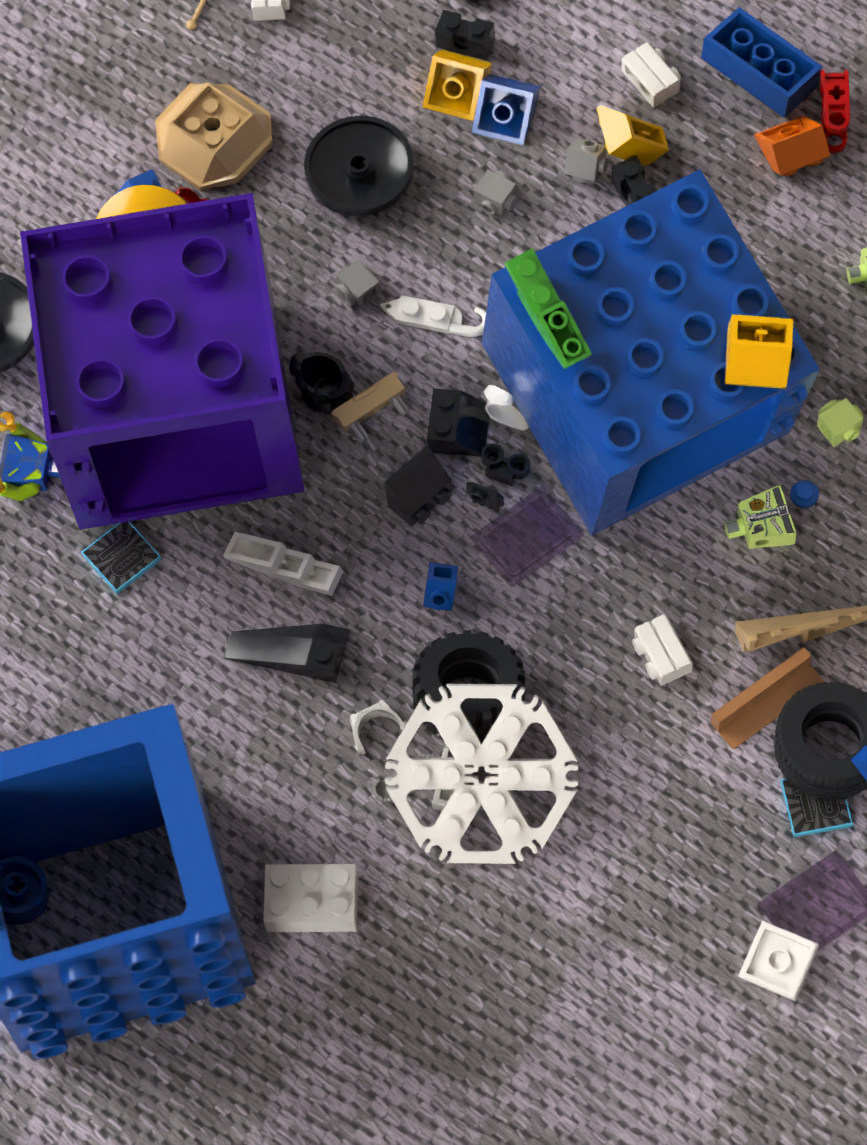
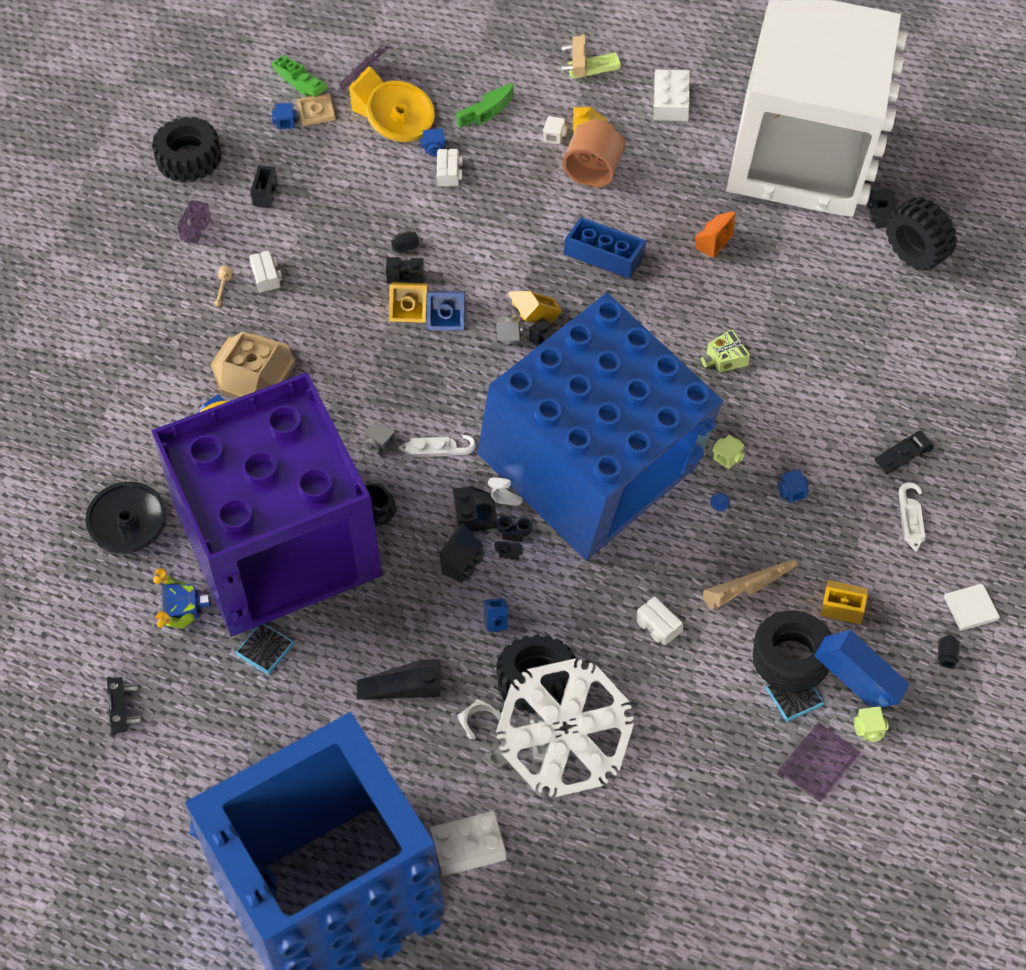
camera: 20 degrees left, 10 degrees down
(282, 563) = (377, 626): white slope -> none
(359, 165) = (358, 363): black dish -> none
(369, 402) = (409, 509): tan piece -> none
(496, 192) = (455, 361): light grey brick -> none
(526, 537) = (543, 571): clear purple piece -> none
(547, 310) = (534, 396): bright green slope -> none
(651, 74) = (535, 269): white brick -> none
(758, 351) = (683, 392): yellow slope -> none
(763, 520) = (699, 523): yellowish green torso -> none
(764, 699) = (737, 637): medium nougat panel -> none
(779, 961) = (805, 804): white tile -> none
(793, 145) = (642, 292): orange slope -> none
(835, 107) = (662, 264): red piece -> none

